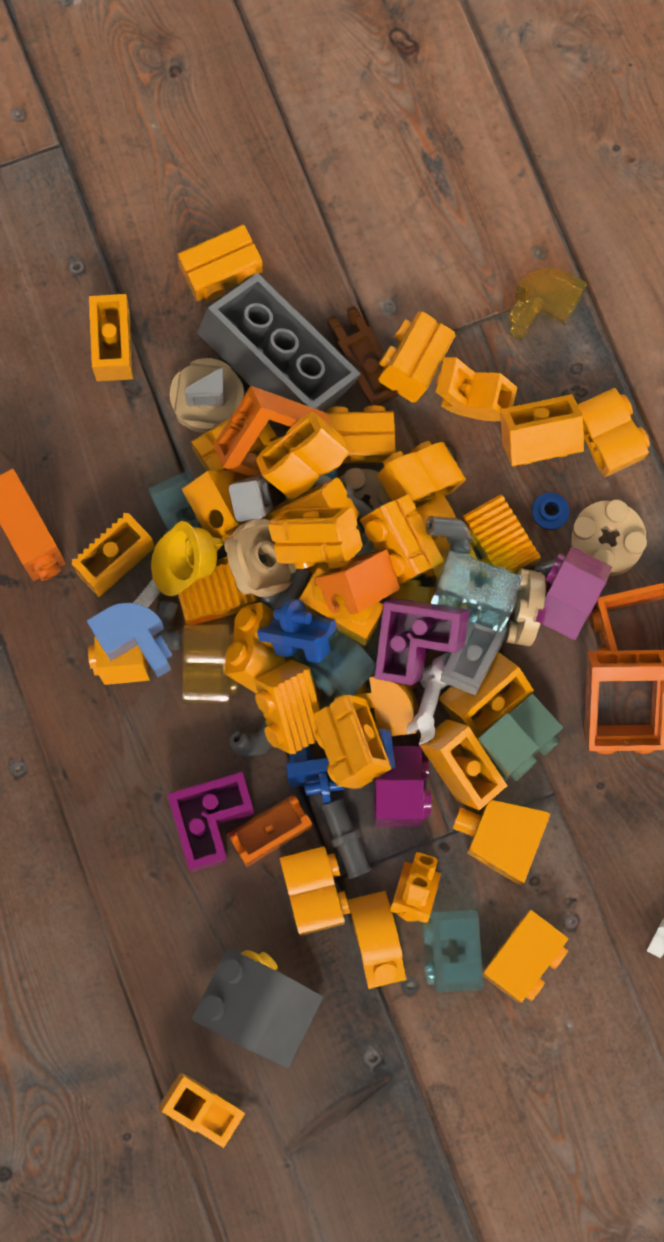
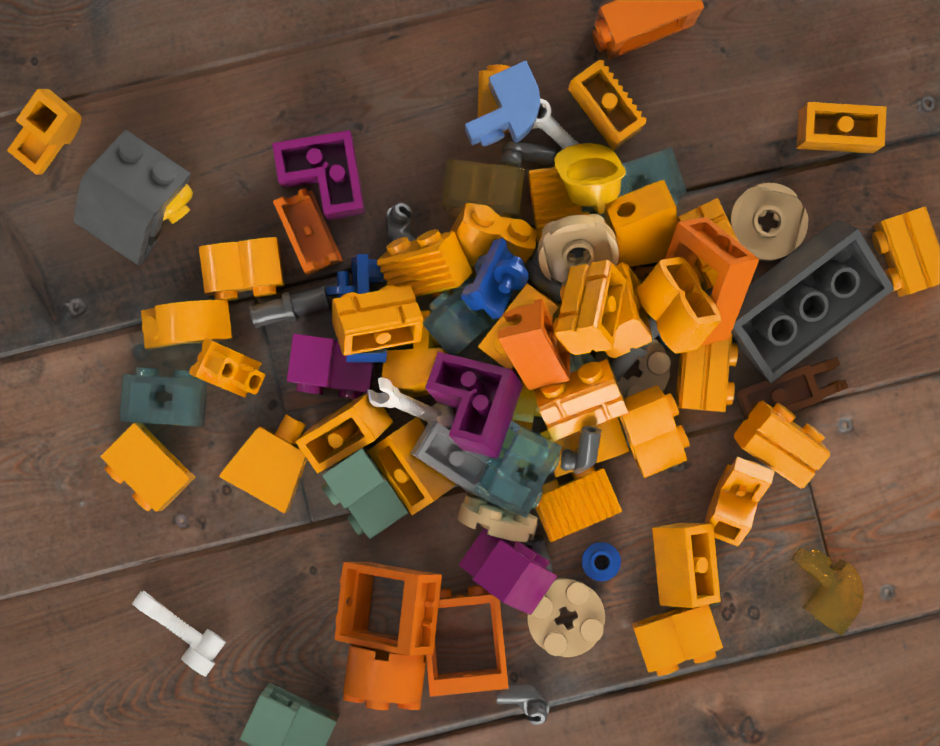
camera: 95 degrees right, 10 degrees up
(207, 391) = (769, 221): light grey slope -> none
(250, 498) = (641, 247): light grey slope -> none

